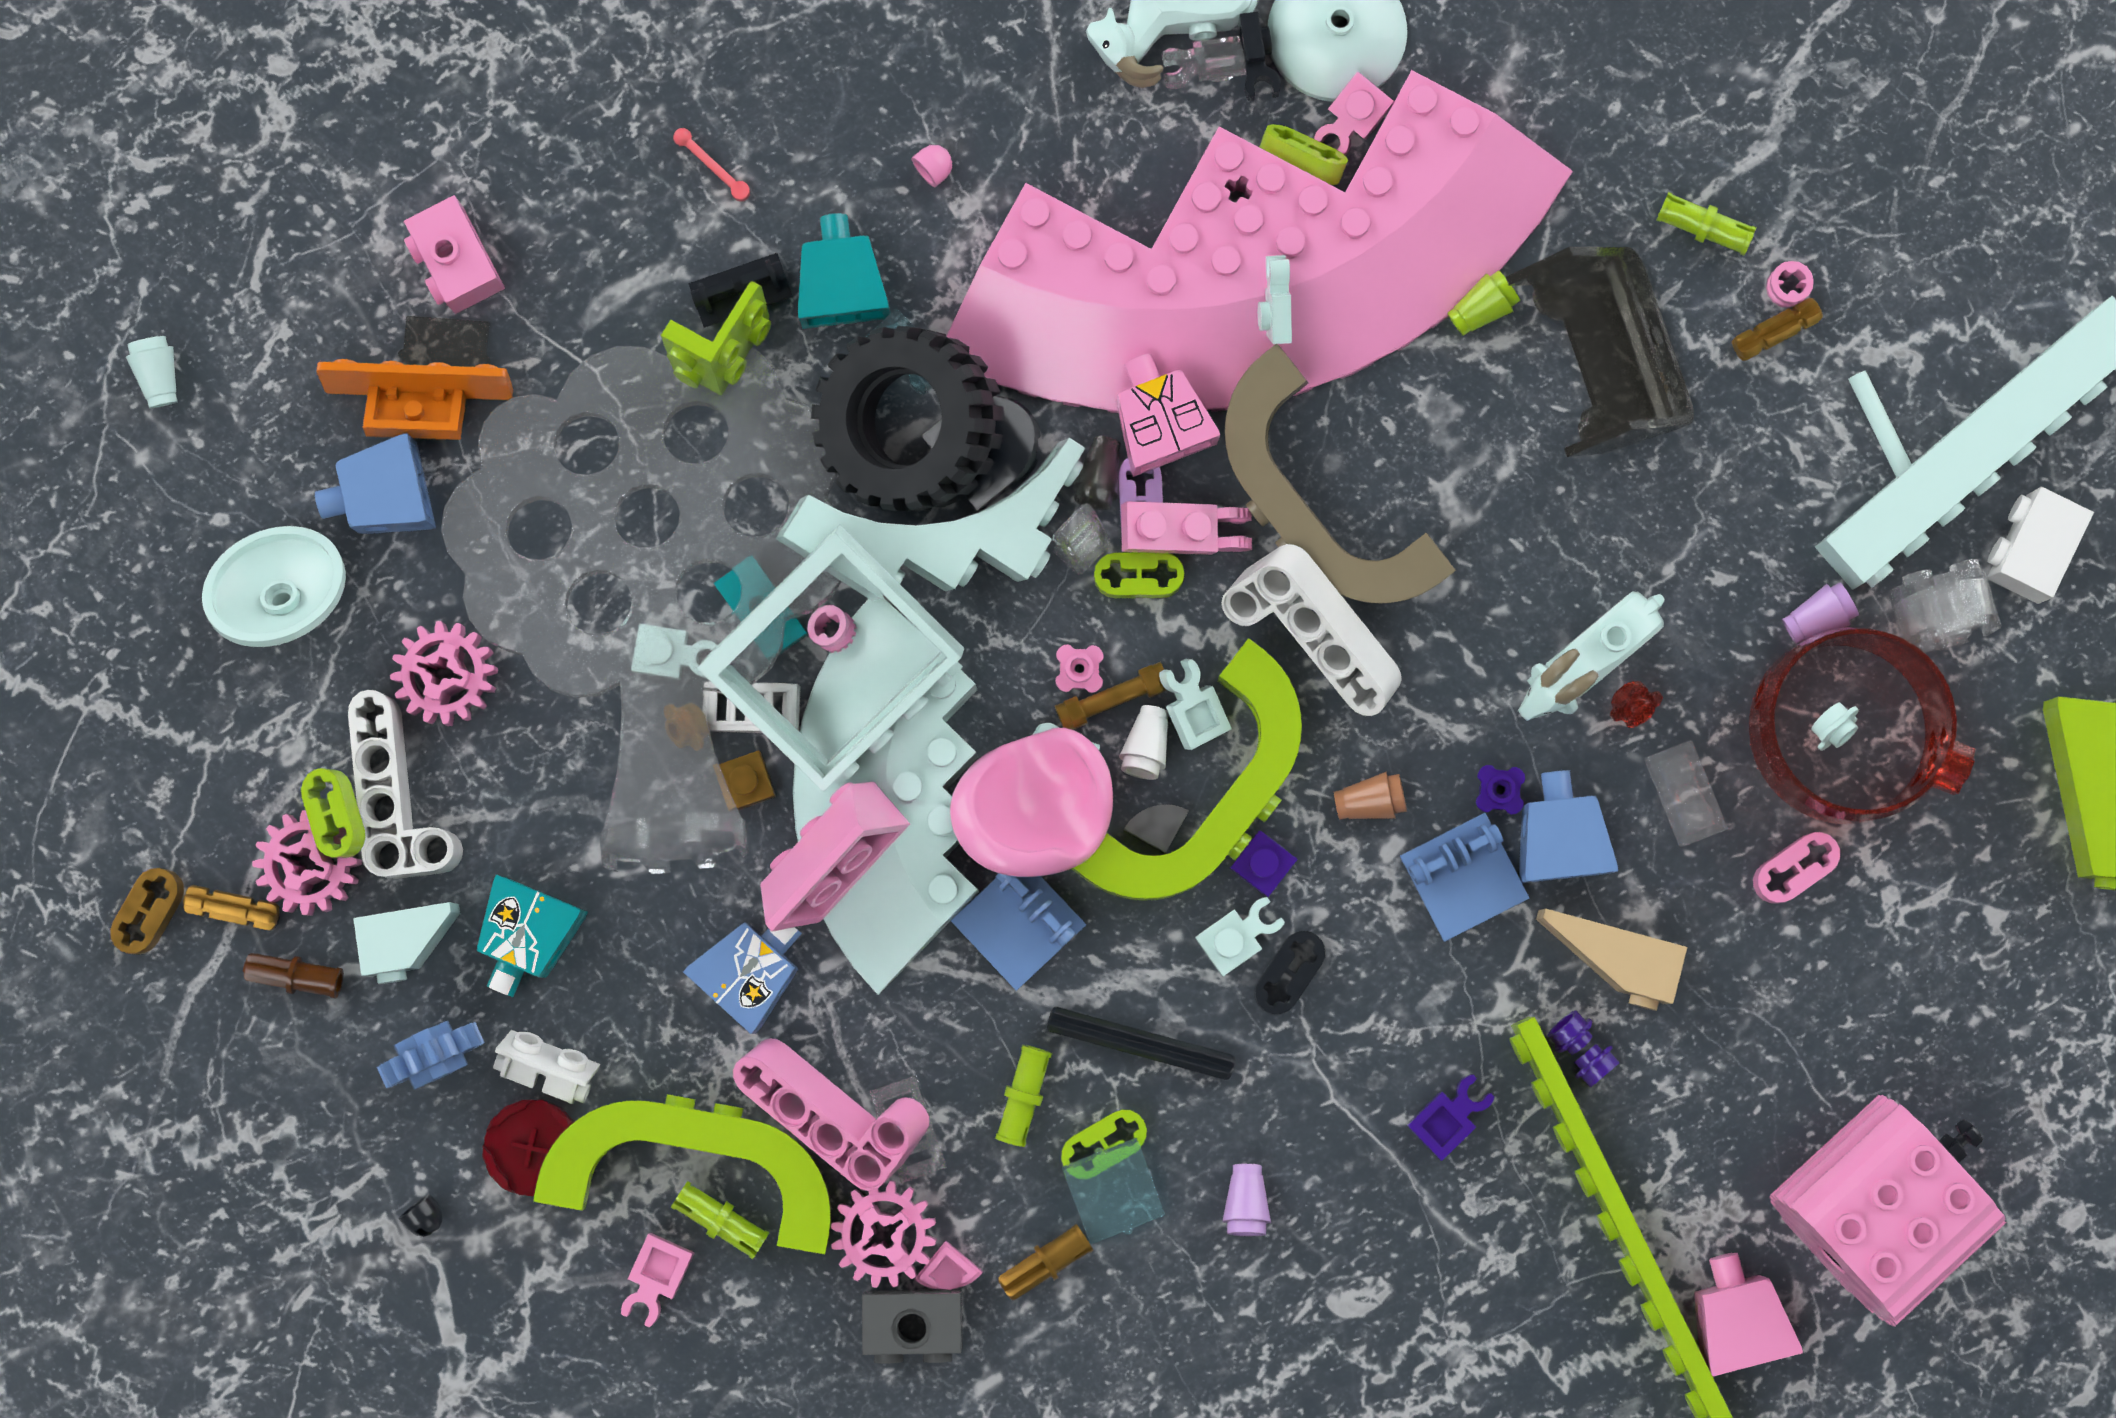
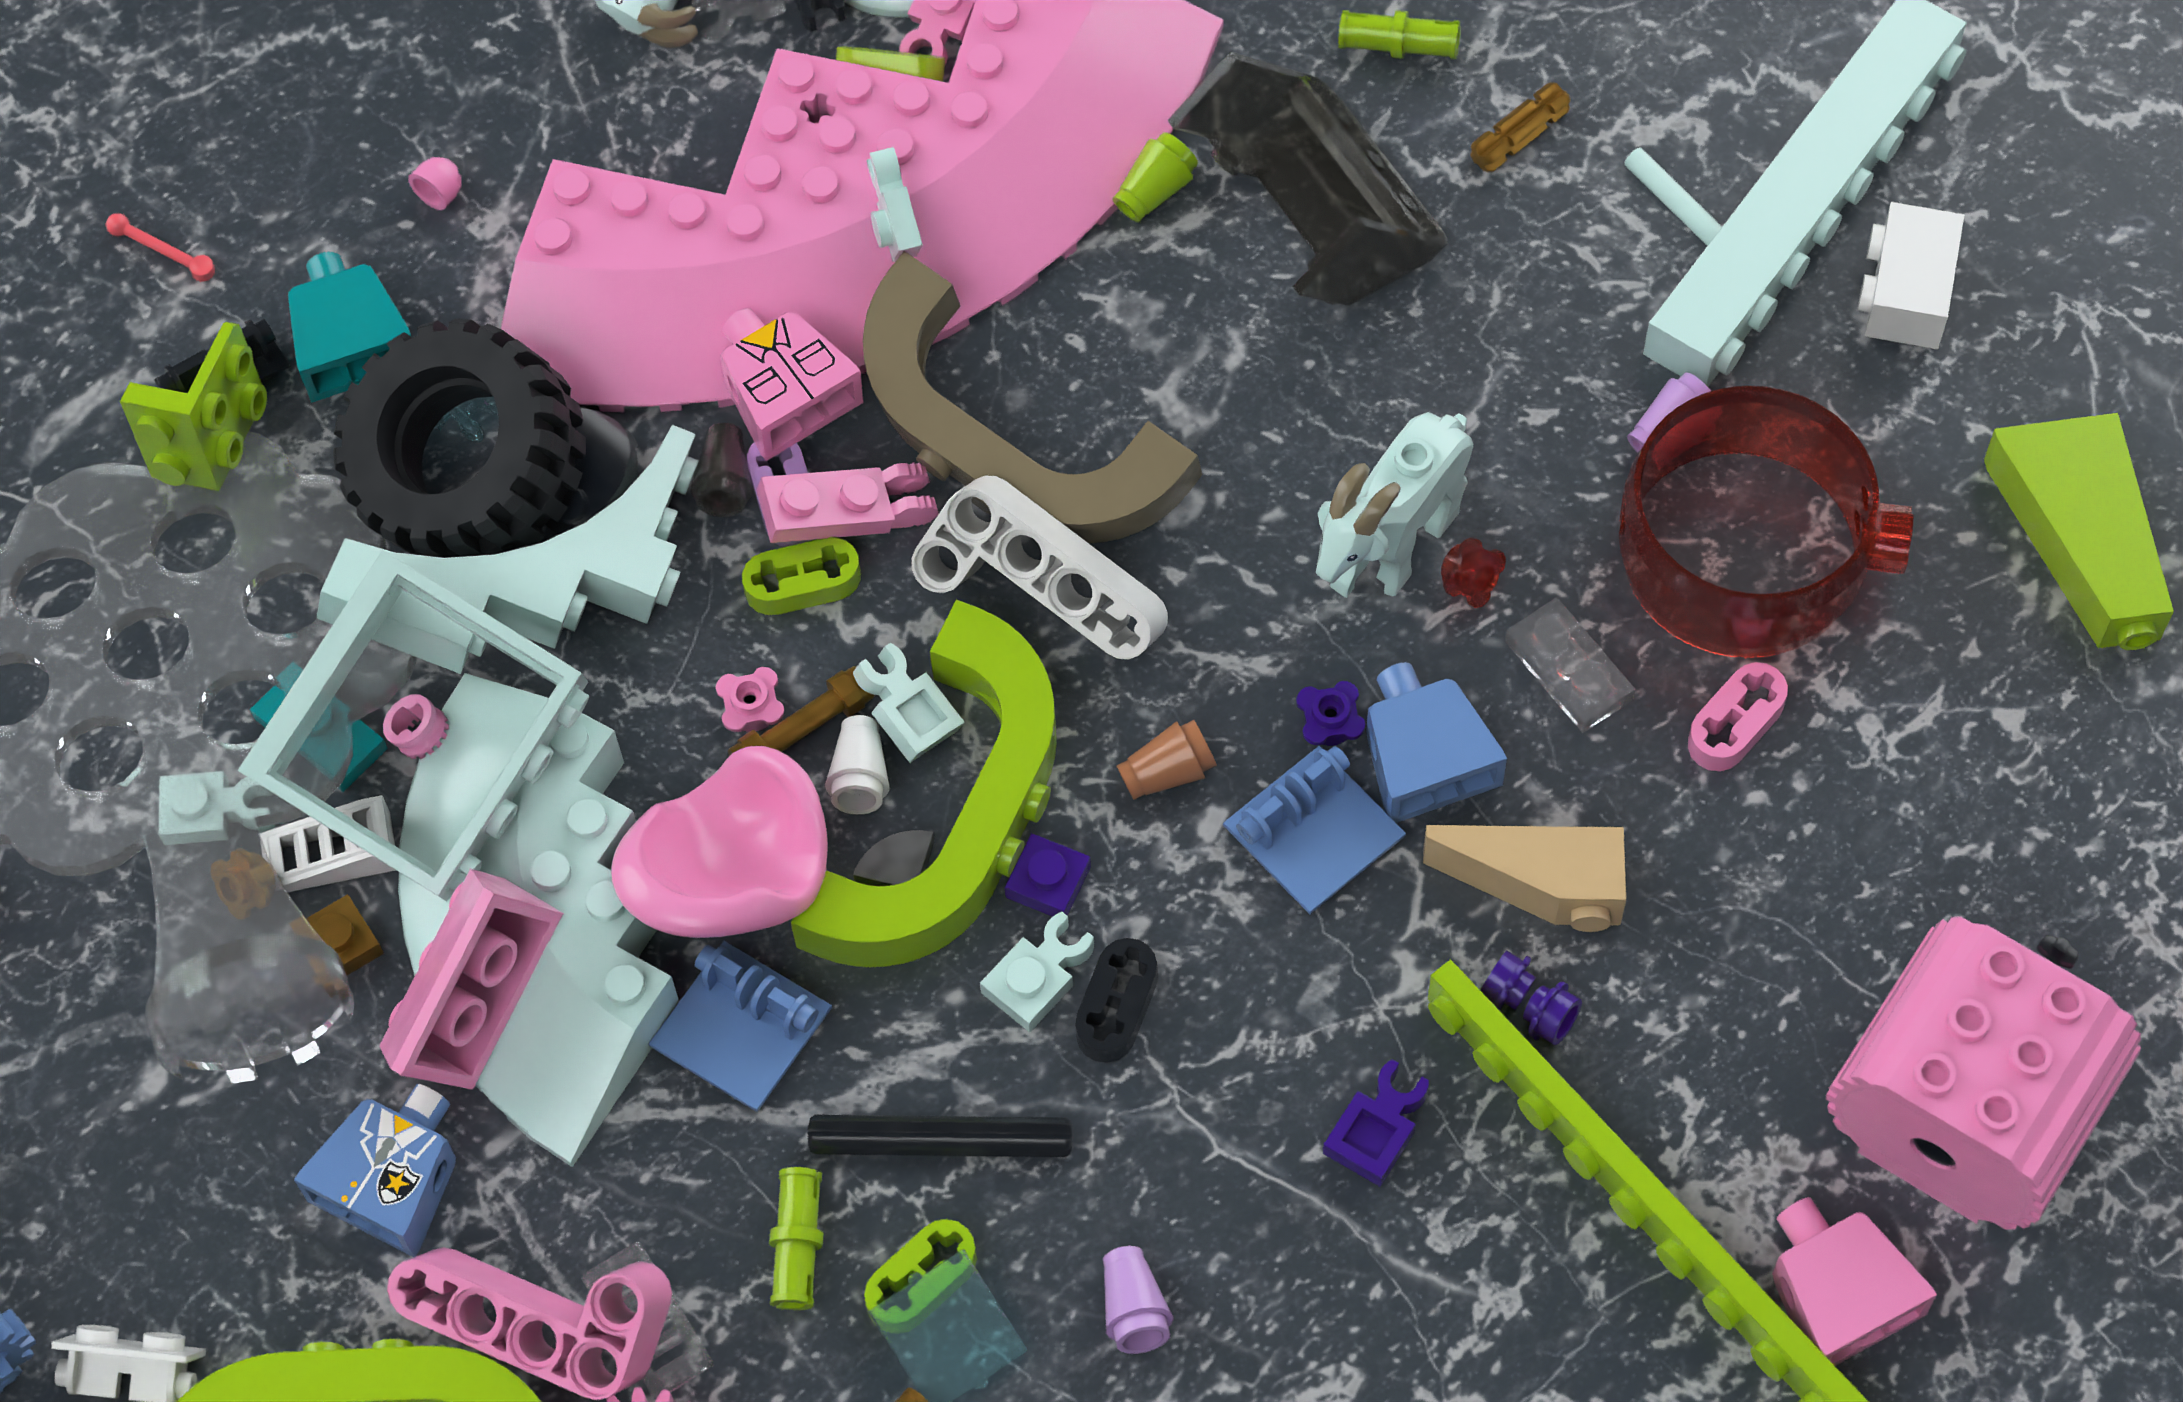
camera: 15 degrees left, 20 degrees down
(524, 932) = (72, 1191): teal torso -> none
(1081, 539) = (712, 538): clear slope -> none
(1786, 270) = (1510, 65): bright pink bush -> none
(1835, 726) = (1720, 493): light aqua plate -> none
(1944, 607) = (1824, 356): clear brick -> none

